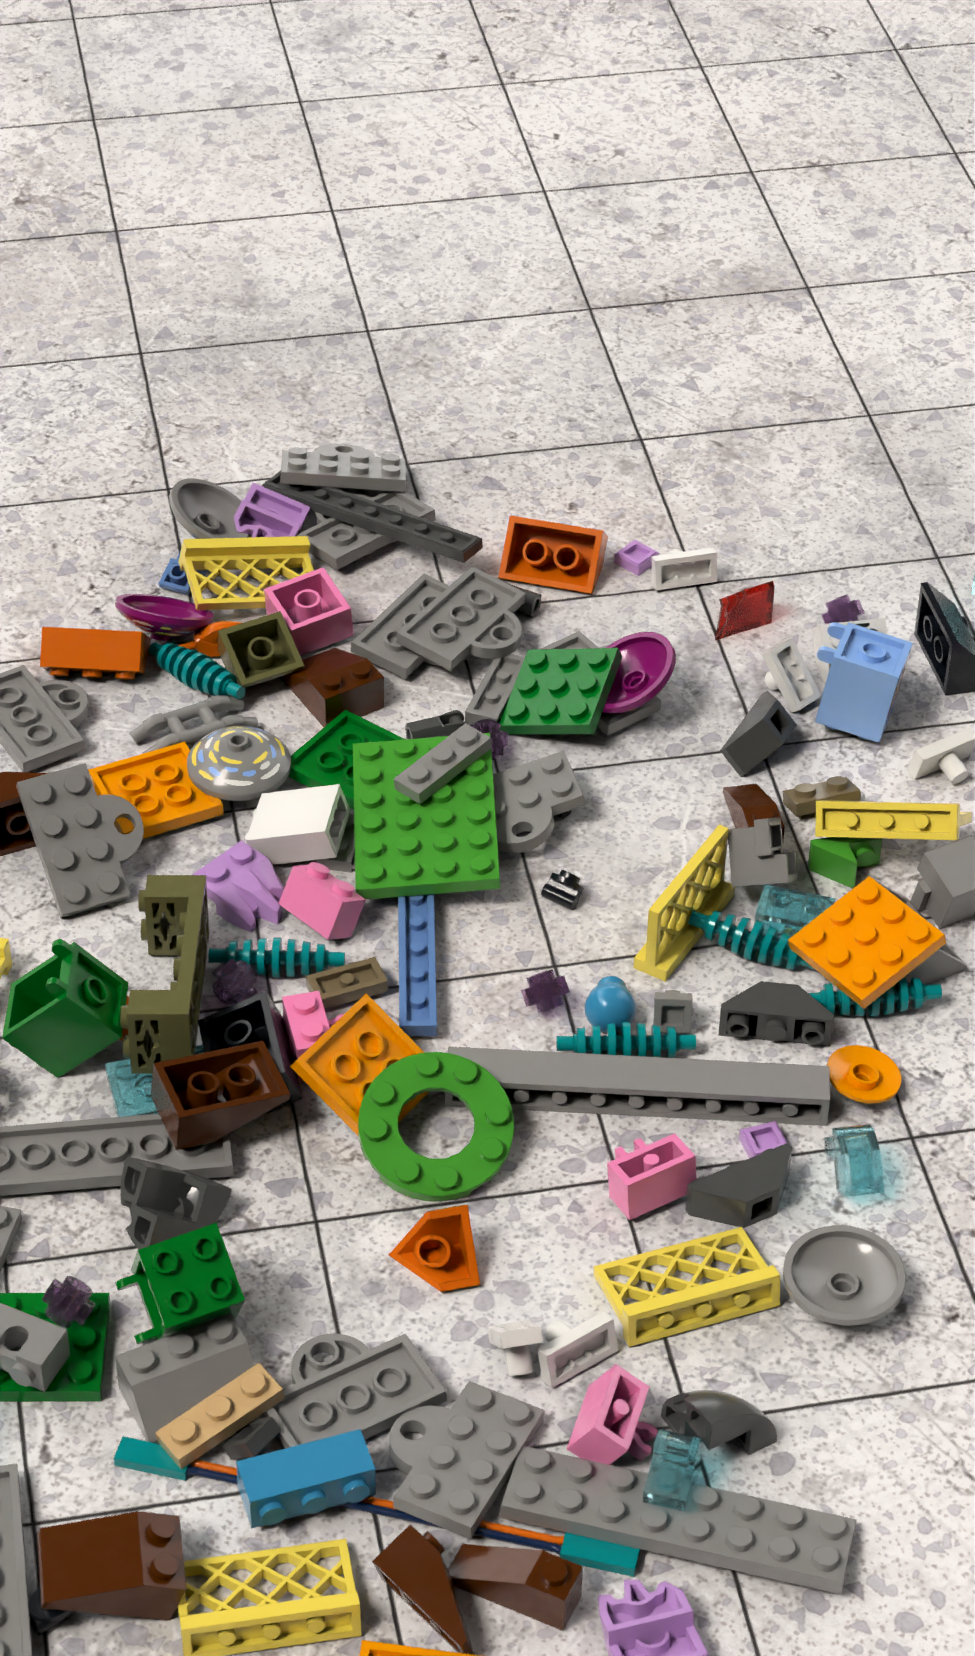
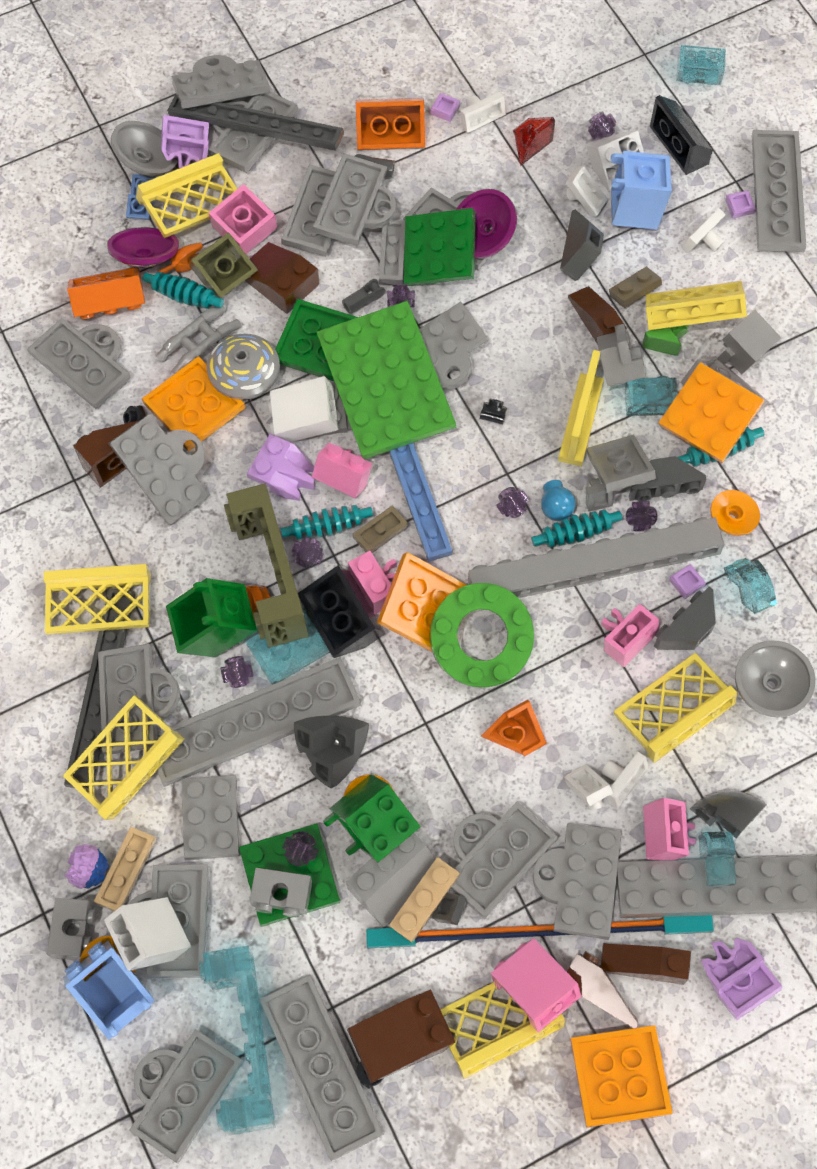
camera: 15 degrees left, 25 degrees up
(76, 1091) = (236, 671): none -> clear purple gear
(215, 1092) = (336, 655): reddish brown slope -> none
(306, 1478) = (497, 933): dark azure brick -> none
(336, 1547) = (536, 984): none -> bright pink panel
(442, 763) = (387, 338): light grey plate -> none
(715, 974) = (621, 463): none -> light grey plate
(724, 1044) = (641, 515): none -> clear purple gear
(752, 939) = (631, 421): teal piece -> none

